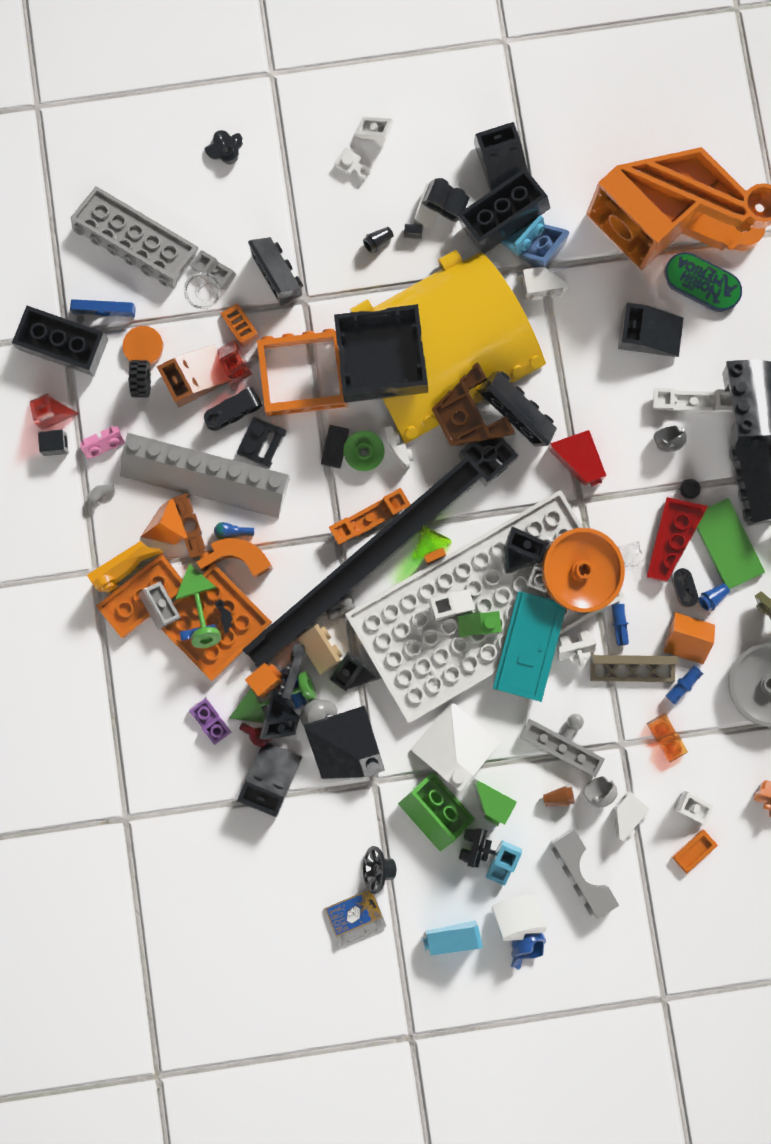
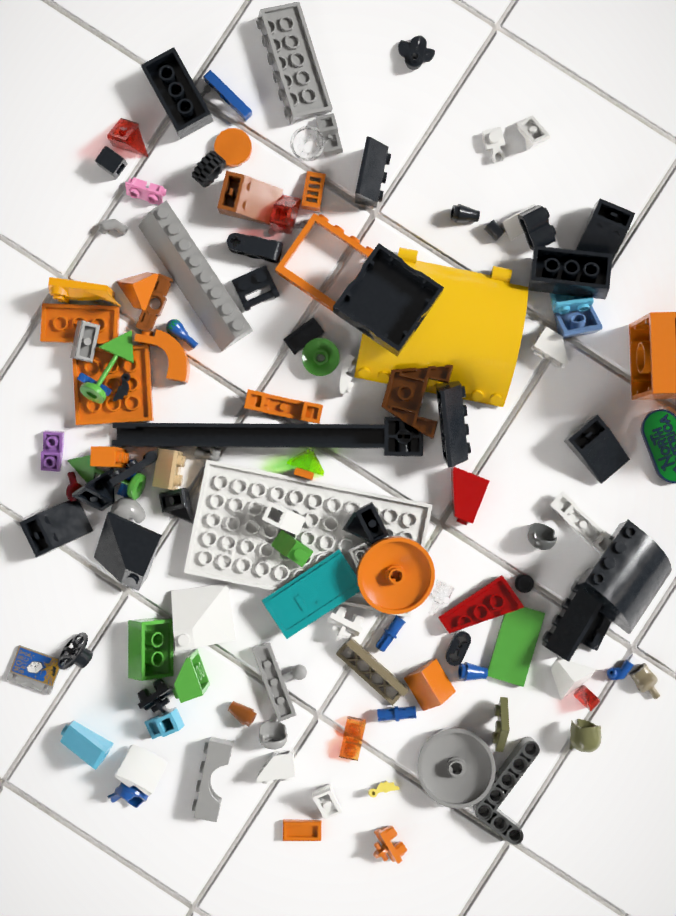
camera: 45 degrees right, 5 degrees up
(728, 755) = (382, 787): none -> light yellow piece

